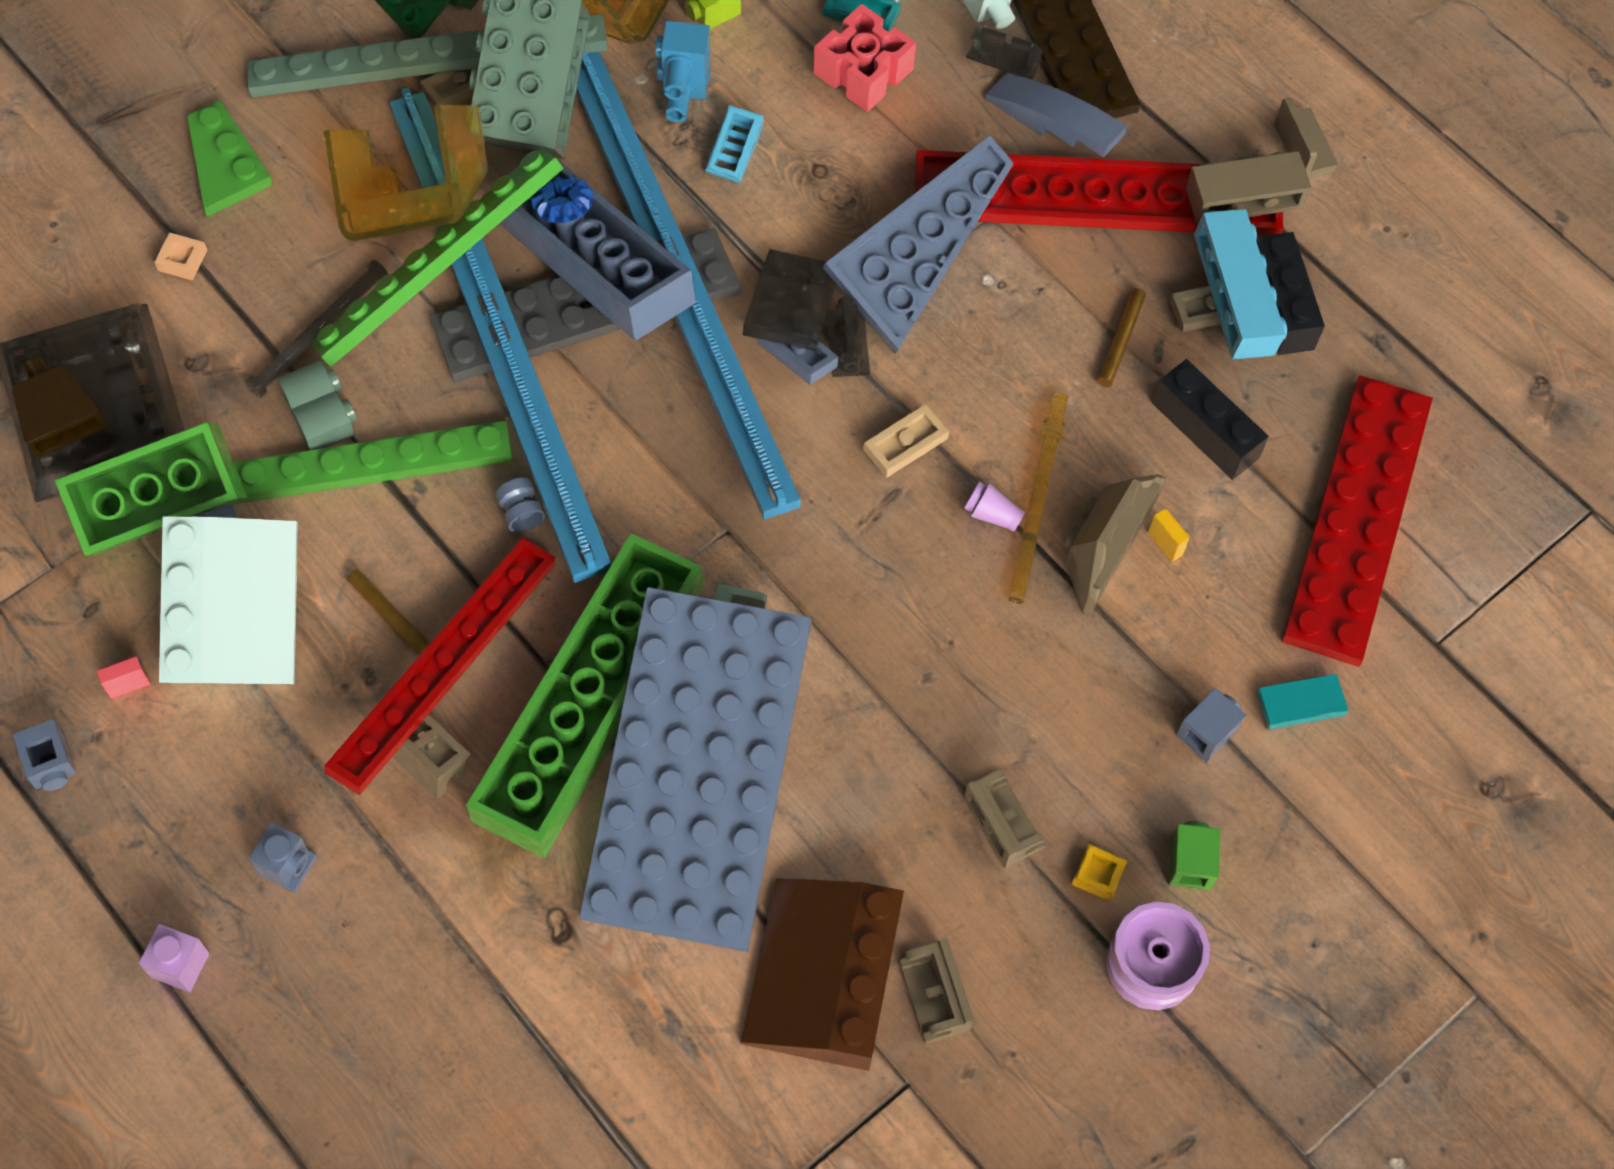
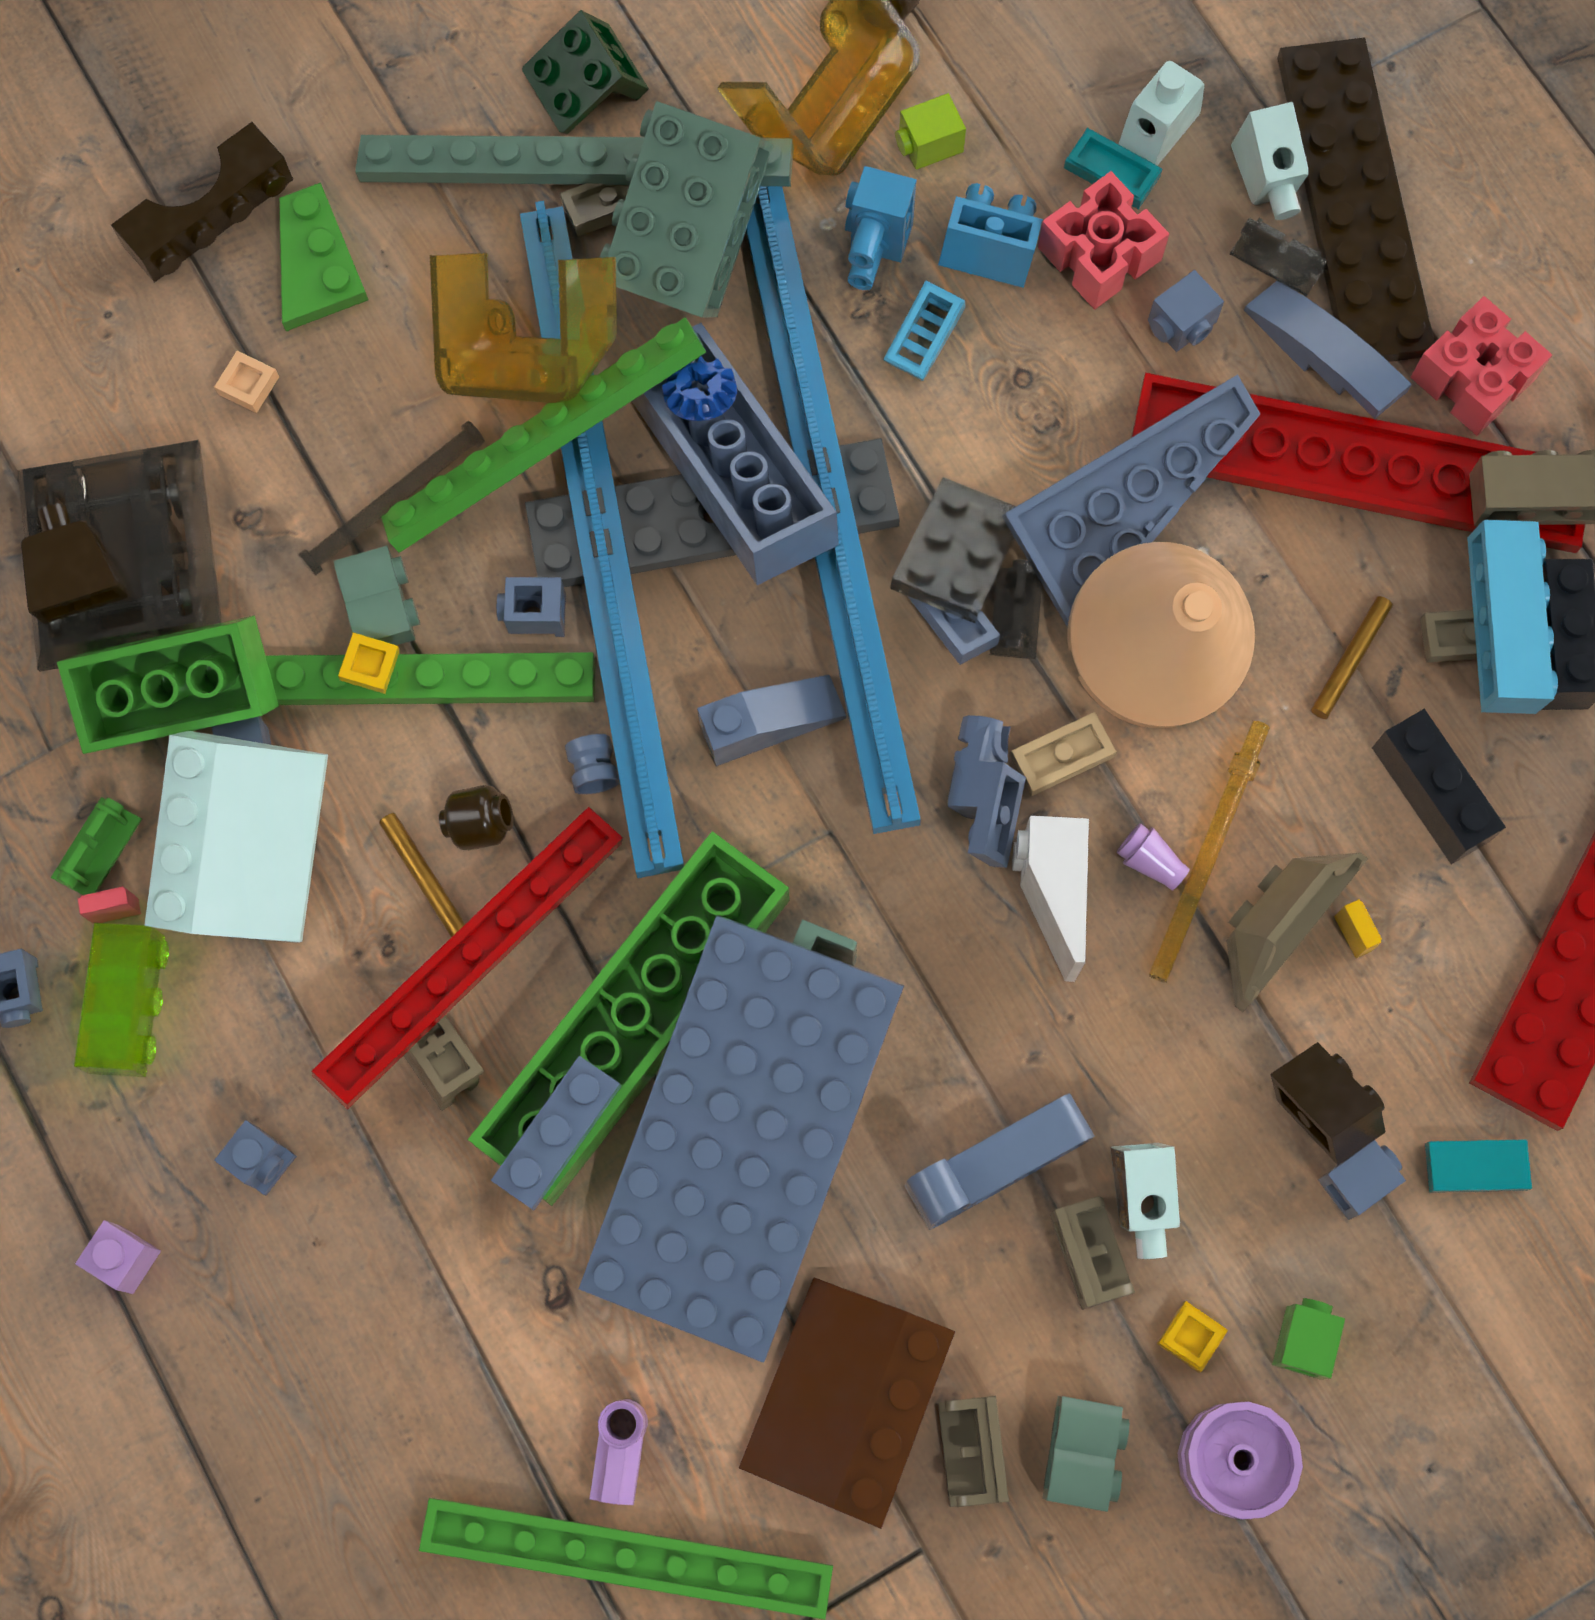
camera: 15 degrees right, 10 degrees up
(95, 155) = (167, 235): none -> dark brown arch
(105, 633) = (96, 847): none -> bright green hinge
(146, 751) = (121, 1000): none -> clear neon green brick
(320, 450) = (369, 663): none -> yellow plate
(429, 560) = (476, 817): none -> dark brown head
(450, 391) = (528, 592): none -> sand blue brick
(541, 786) = (556, 1133): none -> sand blue plate
(636, 1046) = (618, 1457): none -> lavender piece
(657, 1130) = (626, 1558): none -> bright green plate
(658, 448) = (768, 716): none -> sand blue slope
(775, 68) = (990, 238): none -> dark azure brick
(849, 473) = (986, 789): none -> sand blue plate
(882, 782) = (998, 1161): none -> sand blue beam
(919, 535) = (1054, 881): none -> white slope
(939, 102) = (1185, 312): none -> sand blue brick
(967, 339) = (1161, 635): none -> light nougat cone
(1029, 976) = (1084, 1454): none -> sand green brick
(1036, 744) = (1143, 1172): none -> light aqua torso
(1172, 666) = (1329, 1102): none -> dark brown brick
(1177, 110) = (1480, 365): none -> coral brick

